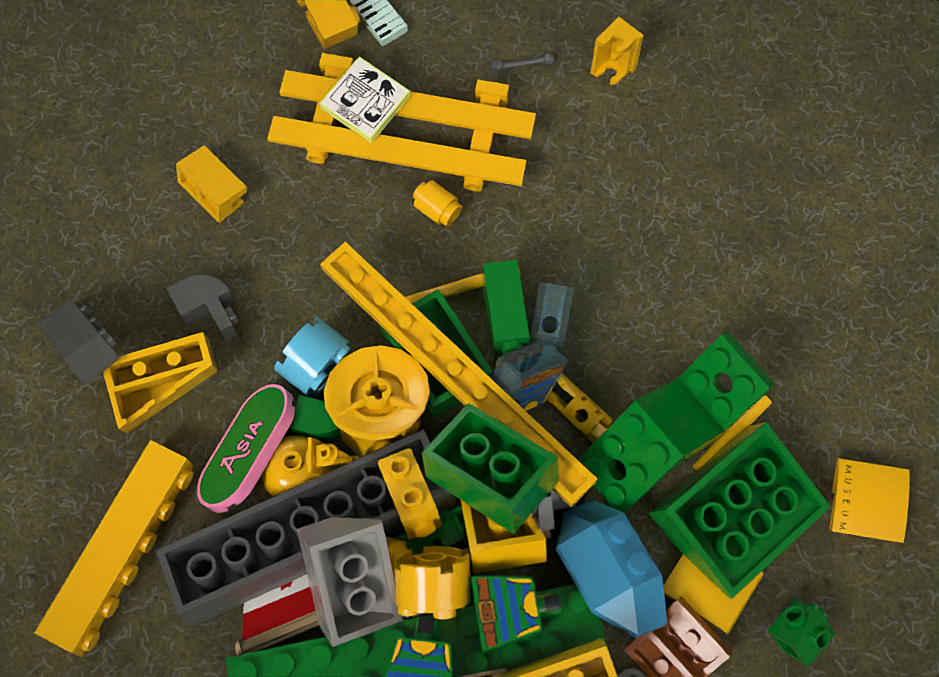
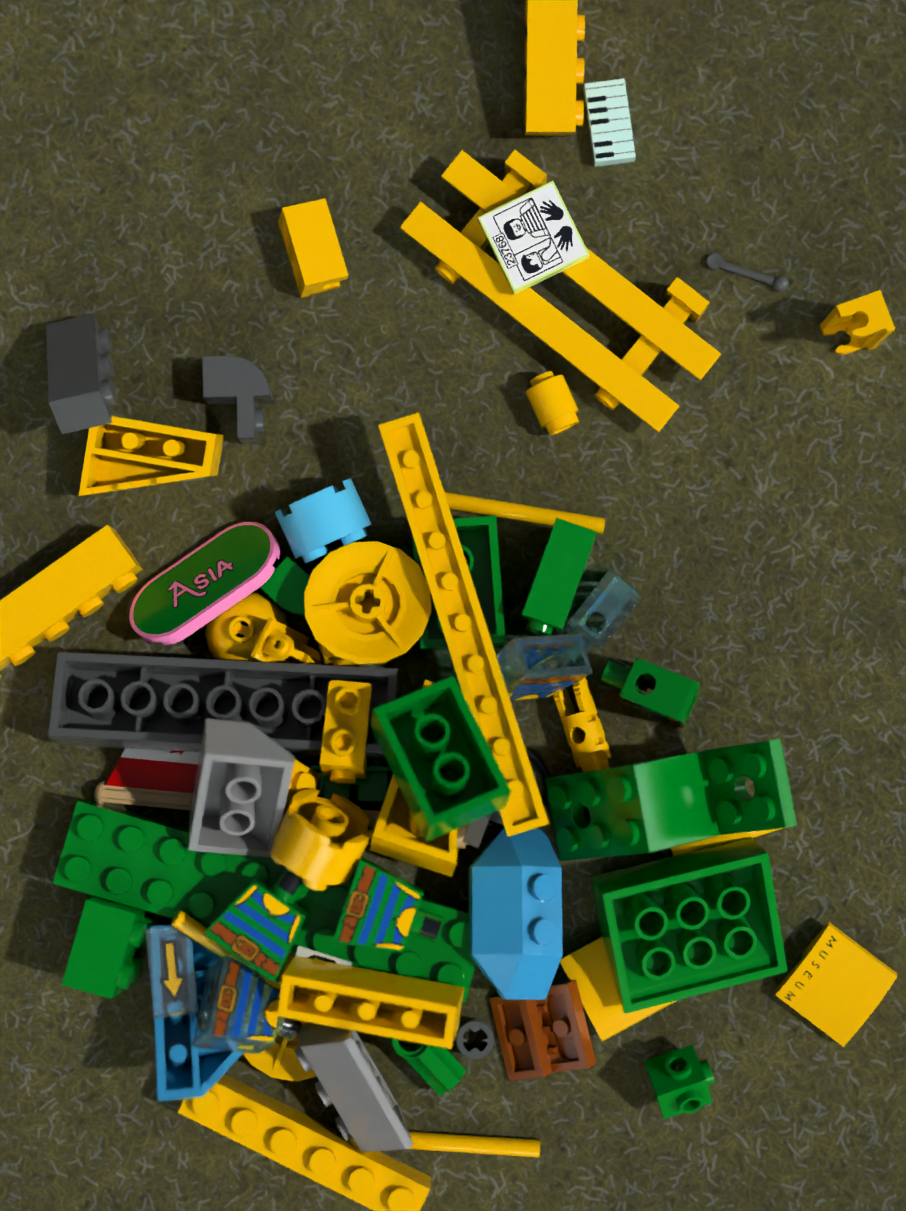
camera: 30 degrees right, 15 degrees up
(618, 355) = (671, 697): none -> green torso

